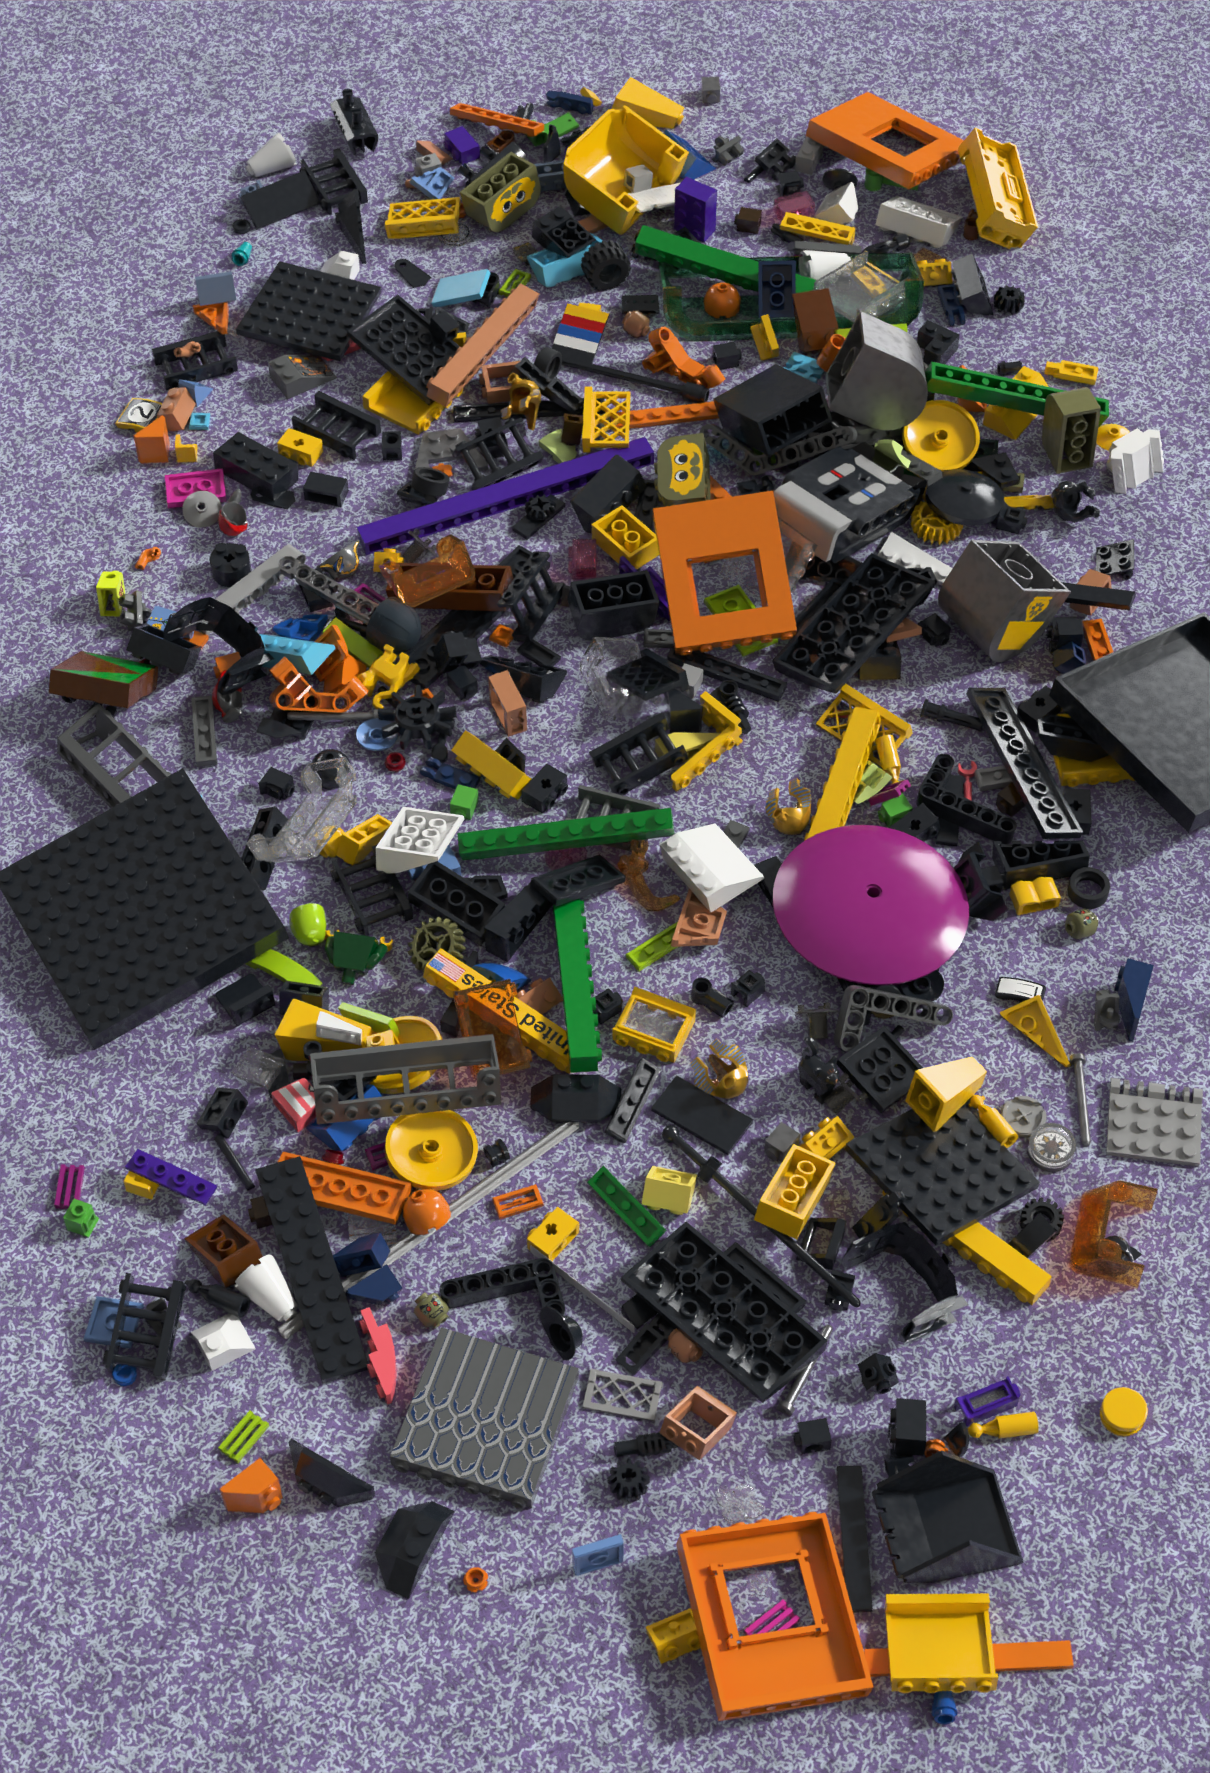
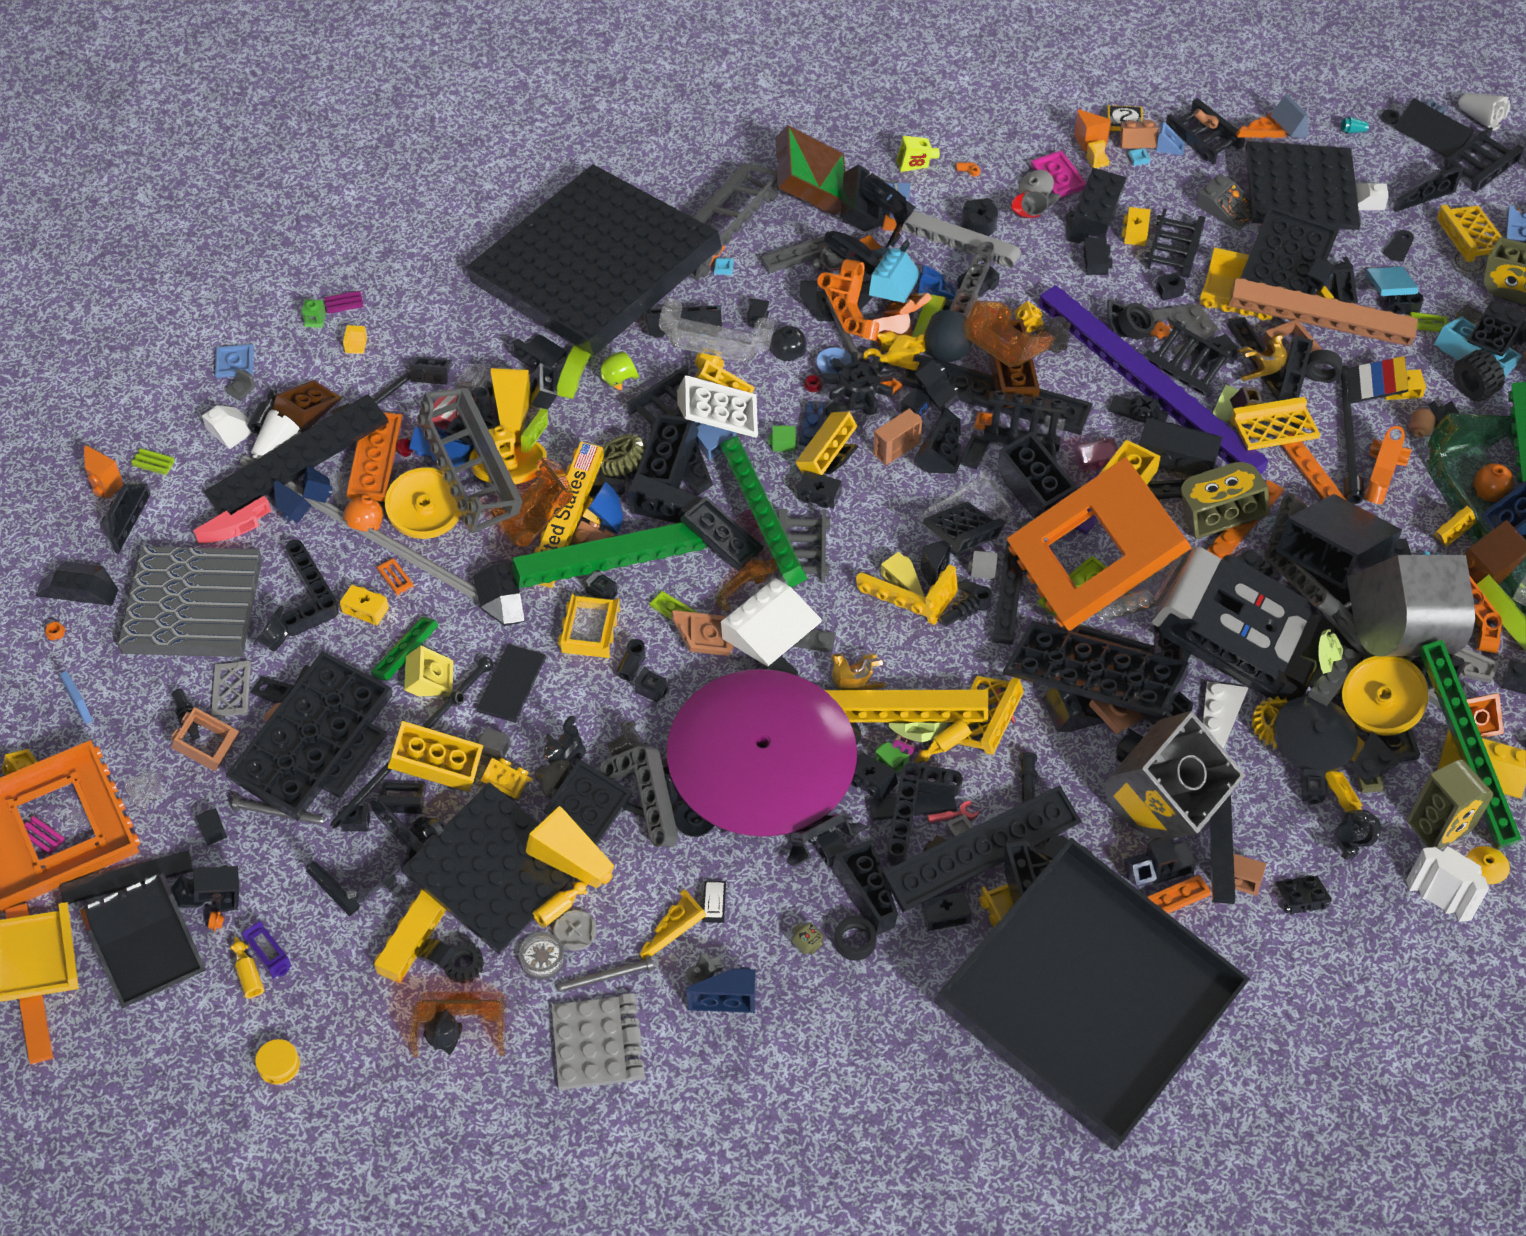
camera: 75 degrees right, 0 degrees up
(124, 1375) = (193, 379): blue tile -> none
(136, 610) = (909, 168): dark grey hips -> none
(163, 1341) = (230, 386): black fence -> none
(171, 1177) = (357, 353): dark purple bracket -> none
(337, 1029) = (503, 399): white slope -> none
(343, 563) = (1017, 290): dark grey hat -> none
(354, 953) = (600, 406): dark green torso -> none
(431, 1310) = (276, 543): olive head -> none
(496, 1152) = (434, 548): black wheel -> none
(585, 1291) = (314, 644): white sticker -> none
(631, 739) = (881, 529): black fence -> none
(632, 1100) = (511, 629): tile -> none
(638, 1482) = (151, 707): black gear -> none
(726, 355) = (1417, 502): black brick -> none
(730, 1079) = (539, 687): pearl gold piece -> none
(878, 1373) = (283, 863): black brick -> none
(958, 1439) = (227, 936): black tile -> none
(1034, 895) = (829, 892): yellow brick -> none

